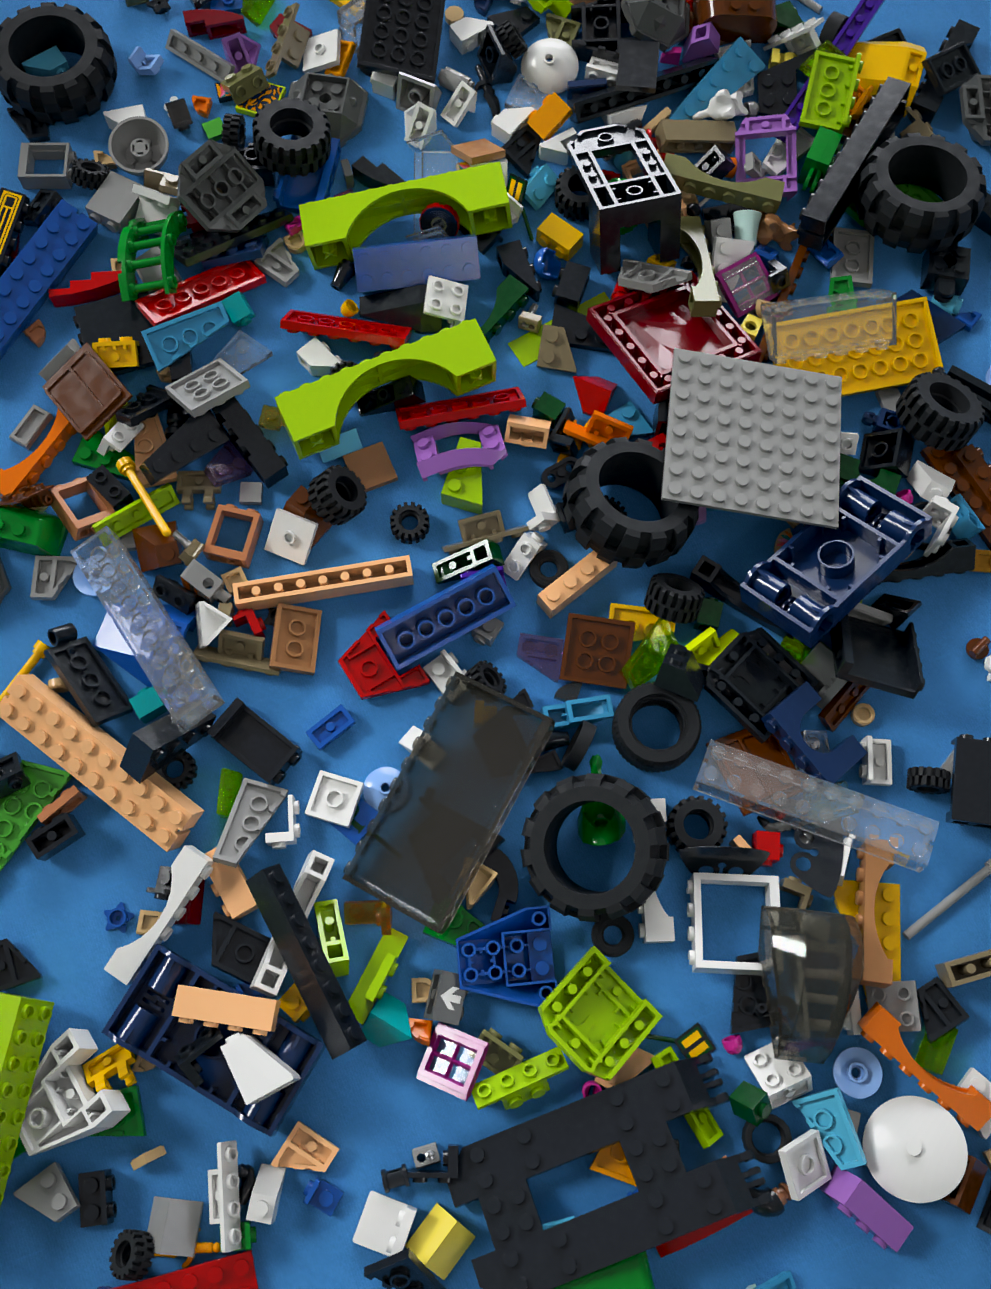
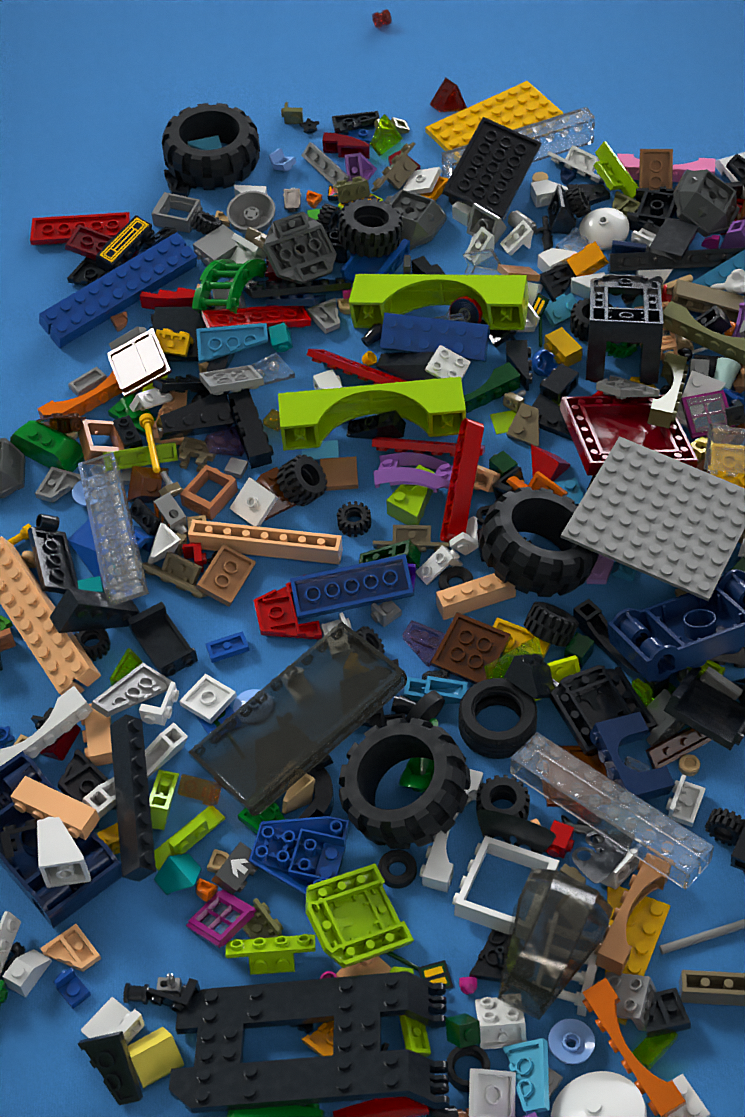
camera: 25 degrees right, 20 degrees down
(518, 447) = (462, 479): none -> red beam

